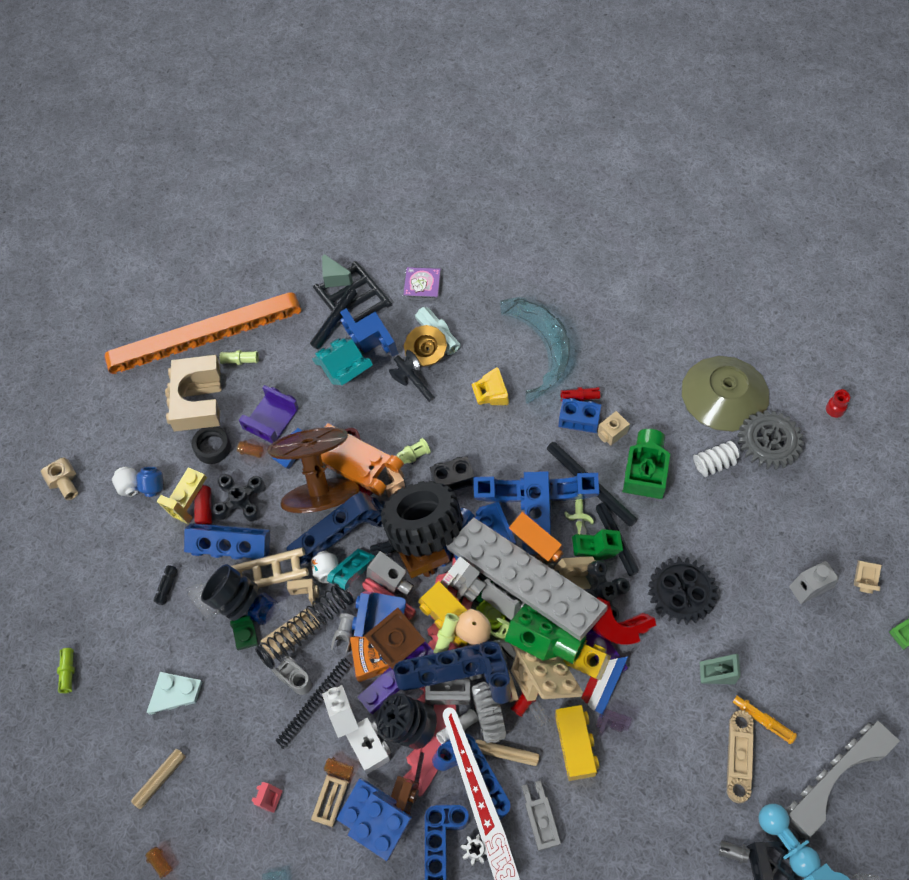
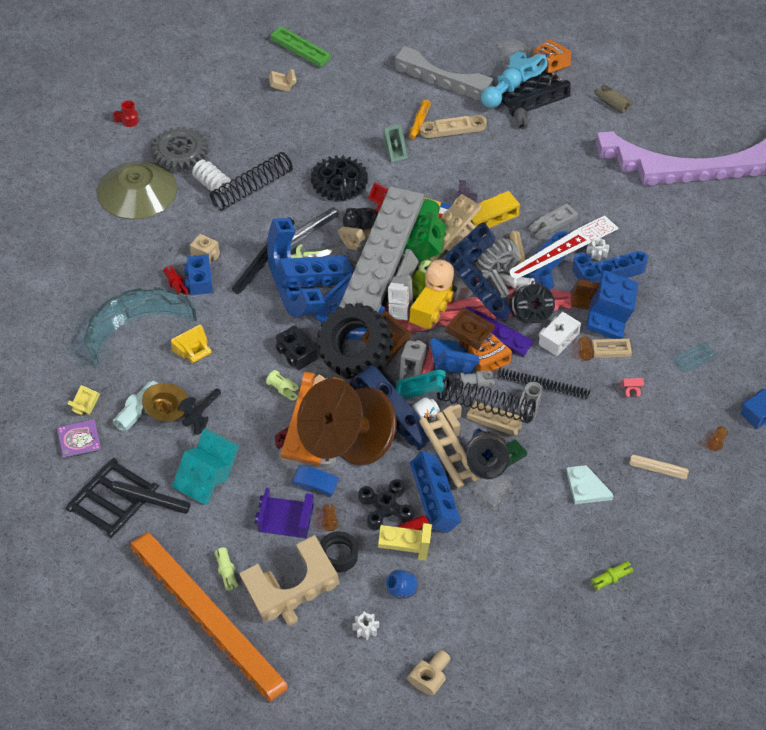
camera: 115 degrees left, 10 degrees down
(125, 481) = (410, 606): white head -> none
(129, 443) = (365, 631): none -> white gear
(165, 585) = (495, 532): black axle -> none
(334, 273) = (94, 513): sand green slope -> none
(340, 711) = (545, 350): white brick -> none
(368, 333) = (166, 449): blue bracket -> none
(446, 634) = (453, 293): yellowish green pin -> none
(457, 291) = (84, 400): none -> light yellow bracket
(537, 538) = (344, 253): orange window -> none
(600, 546) = (323, 231): green brick -> none
(647, 465) = (236, 216): green brick -> none
(713, 537) = (212, 197): none -> black piece
(818, 581) = (301, 103): light grey torso -> none

